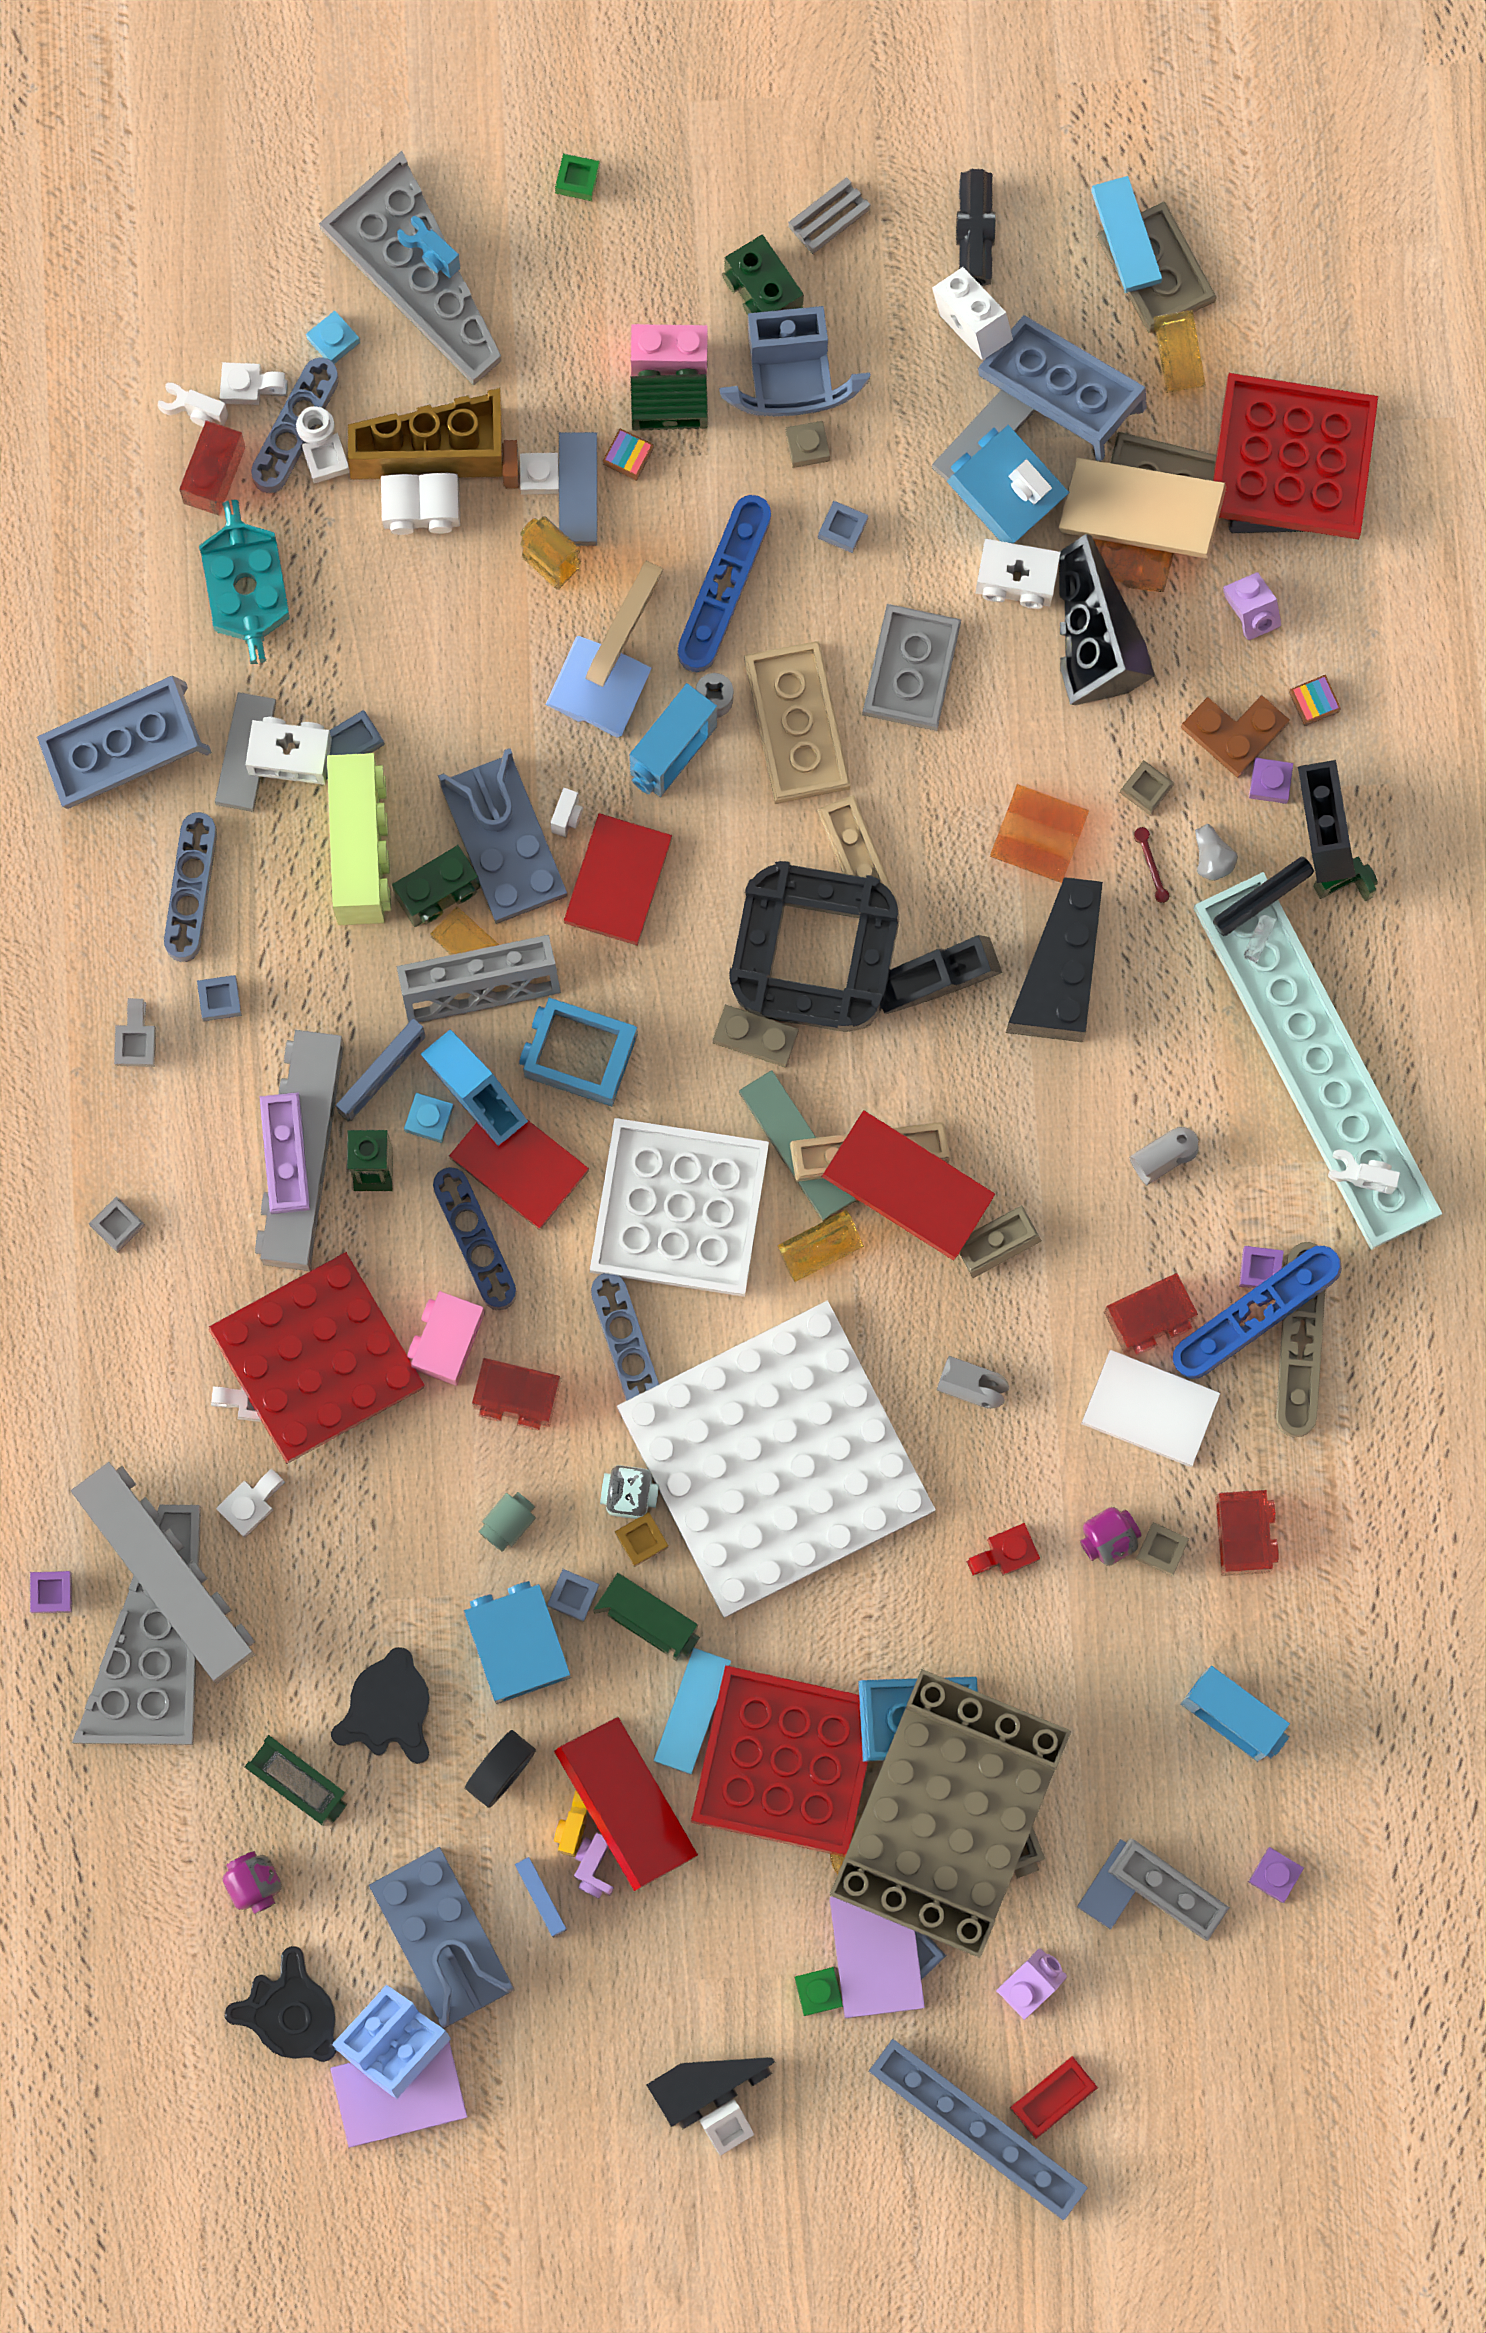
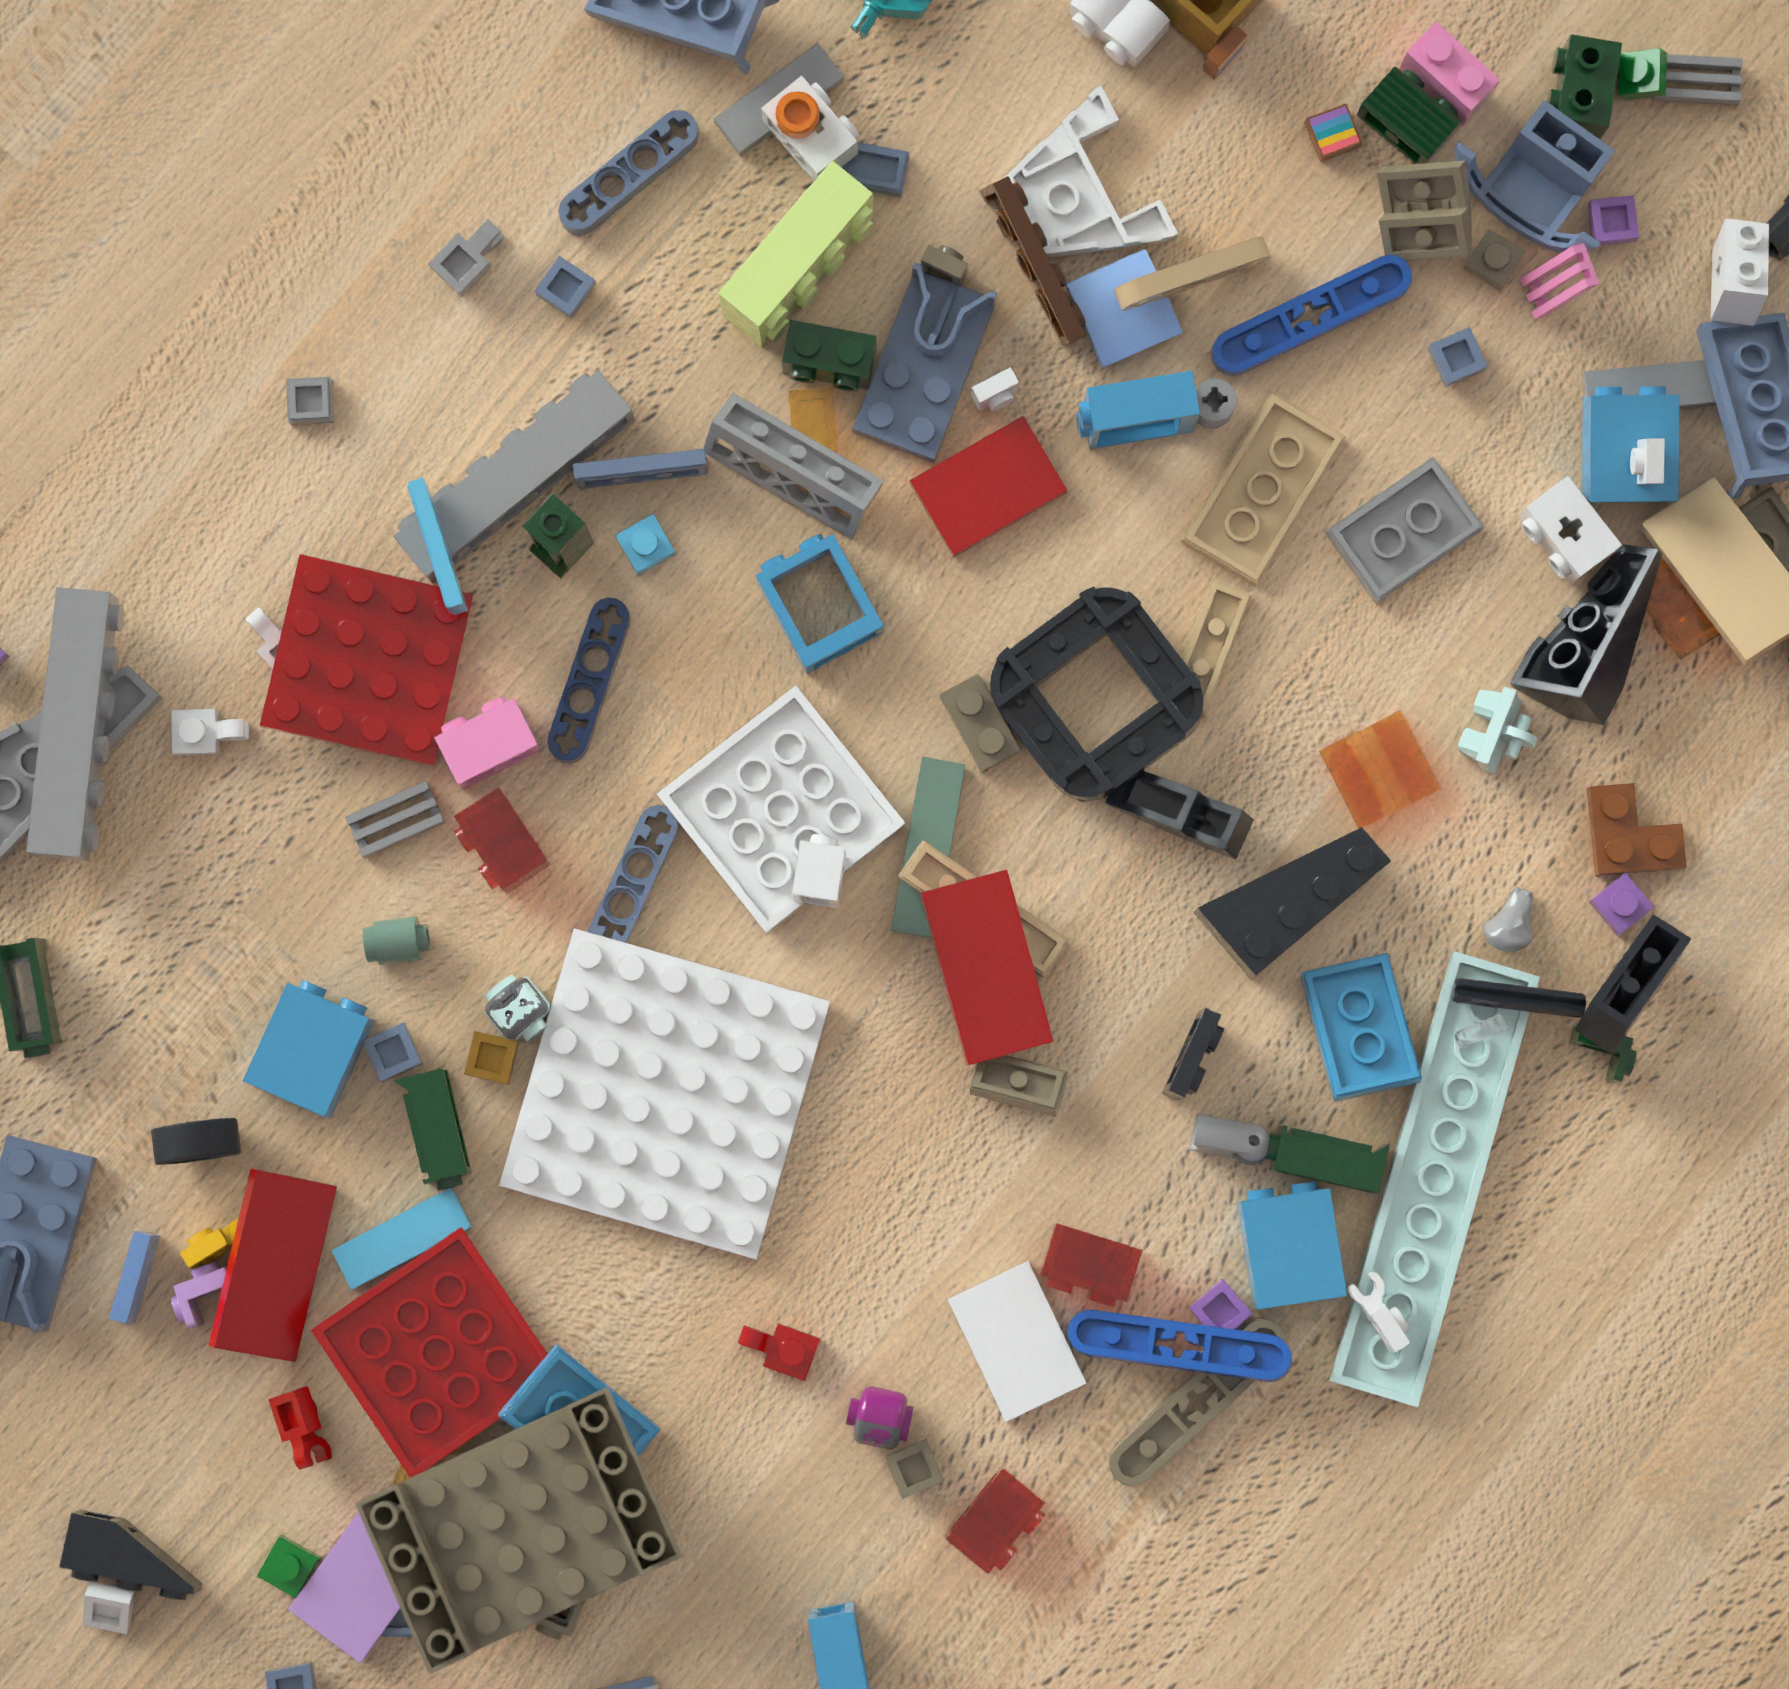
camera: 45 degrees right, 5 degrees up
(274, 747) = (797, 114): none -> orange tile
(284, 1153) = (492, 465): lavender tile -> none
(299, 1236) = (437, 546): none -> medium azure tile
(388, 1707) = (159, 1003): black tile -> none
(445, 1413) = (361, 833): none -> light grey tile
(457, 760) = (945, 264): none -> dark tan plate
(474, 1087) = (701, 553): dark azure slope -> none
(496, 650) = (1069, 197): none -> white wing
(511, 705) = (1015, 224): none -> reddish brown wing
(523, 1171) = (684, 650): red tile -> none
(539, 473) = (1243, 82): white plate -> none
(549, 551) = (1185, 155): clear yellow brick -> none
(578, 486) = (1263, 124): sand blue tile -> none
(736, 450) = (1426, 210): none -> dark tan slope
(736, 1890) = (296, 1421): none -> red plate
(747, 1218) = (819, 872): none -> white brick
(792, 242) = (1642, 74): none -> green plate
(820, 1245) = (867, 949): clear yellow plate -> none
(855, 439) = (1540, 291): none -> bright pink tile
(860, 351) = (1613, 220): none -> medium lavender plate
(972, 1383) = (882, 1178): light grey piece -> none
(1083, 726) = (1503, 713): none -> light aqua hips
(1097, 1132) = (1201, 1039): none -> black plate
(1142, 836) = (1465, 851): dark red hinge -> none
(1146, 787) = (1508, 813): dark tan tile -> none
(1181, 1007) = (1361, 1027): none -> dark azure tile
(1239, 1109) = (1327, 1159): none -> dark green window
(1253, 605) = (1748, 740): lavender bracket -> none
(1267, 1185) = (1291, 1246): none -> dark azure brick
(1314, 700) = (1724, 869): tile -> none

